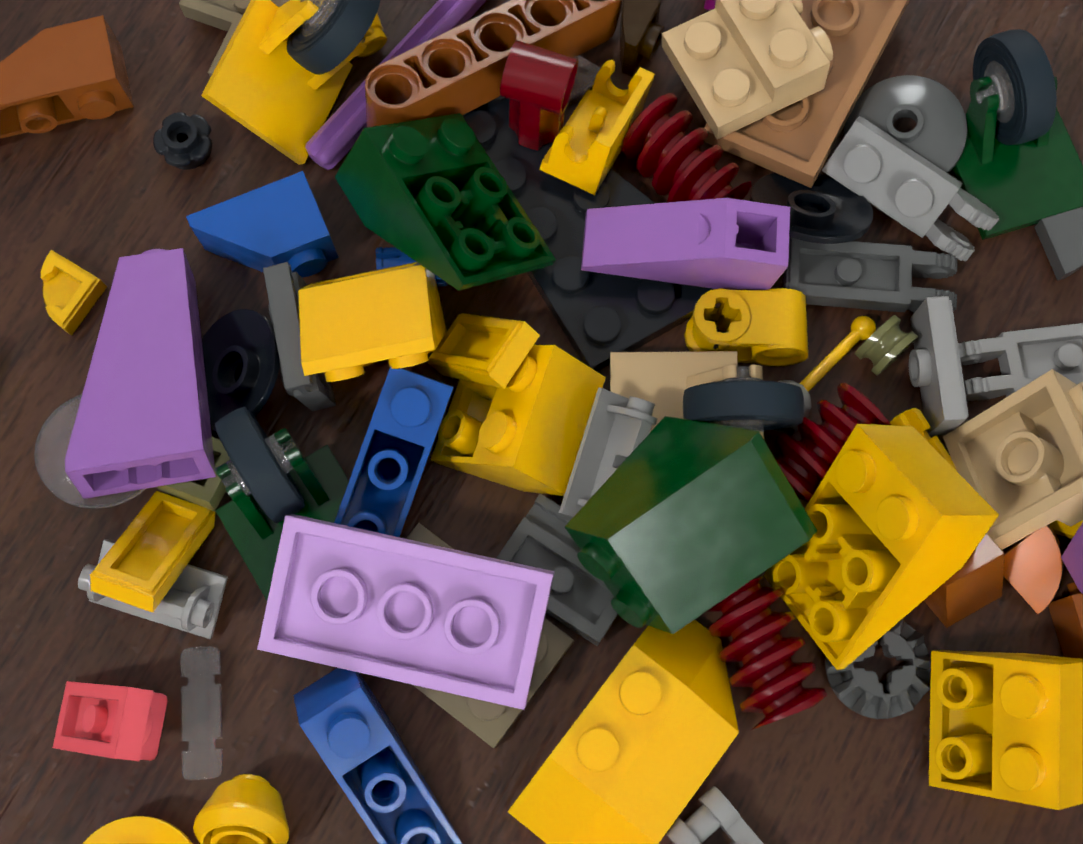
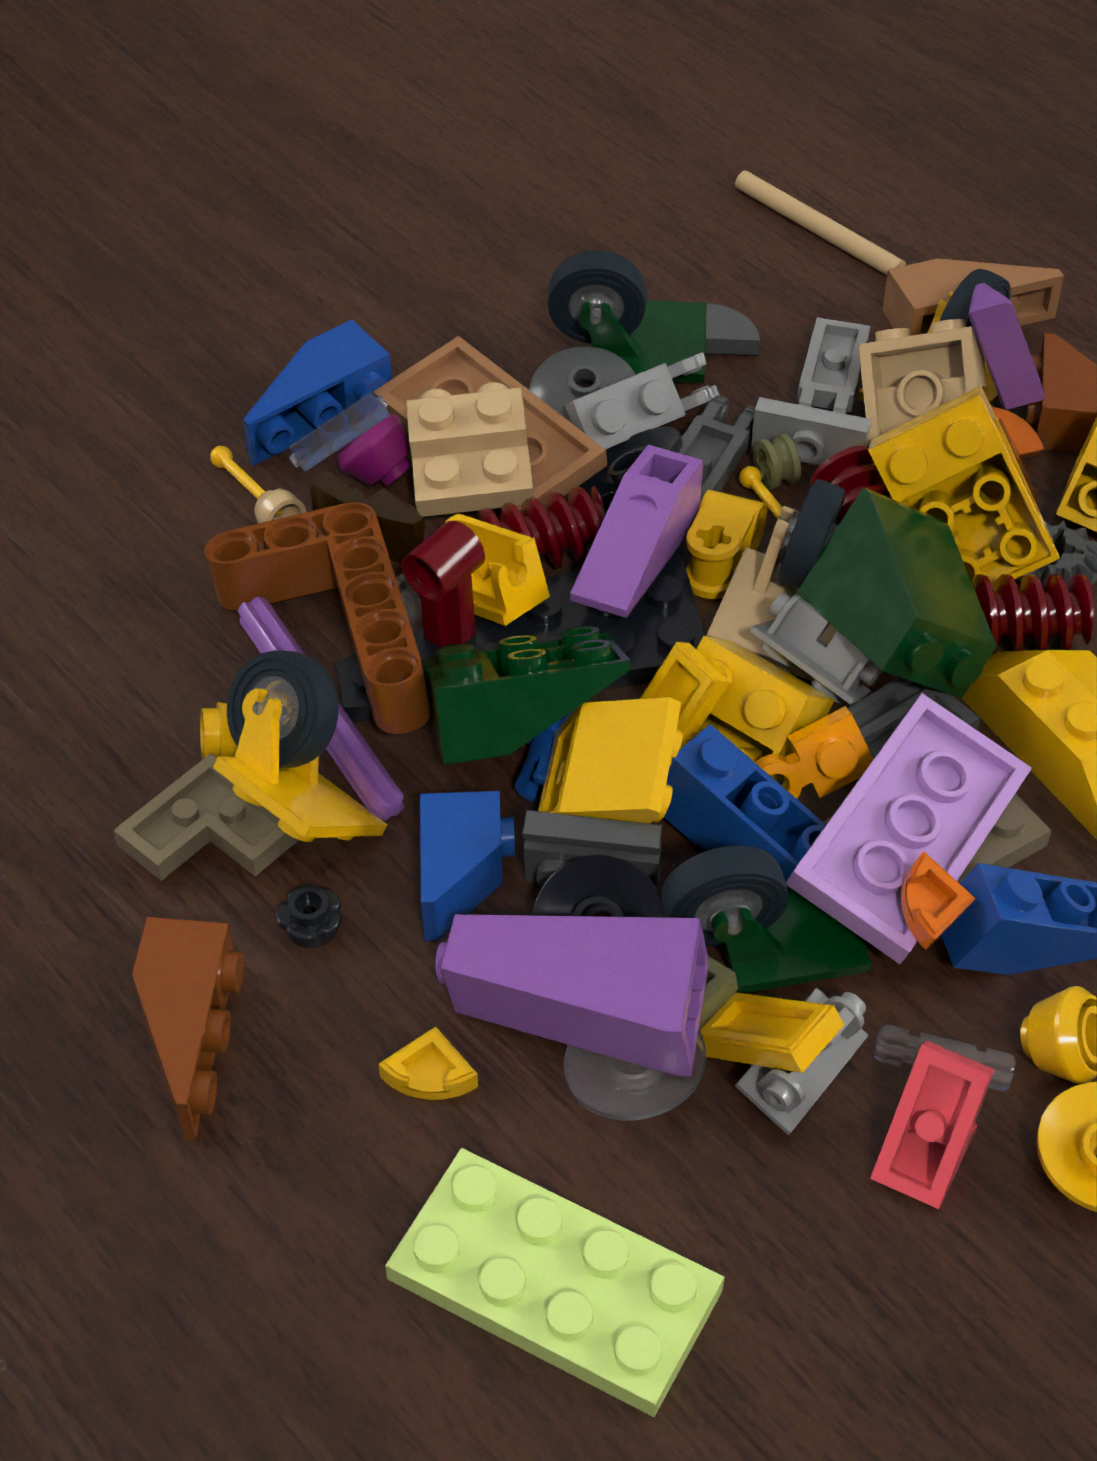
camera: 70 degrees left, 25 degrees down
(310, 654) = (931, 900): none -> orange tile
(478, 503) = (825, 754): none -> light orange plate

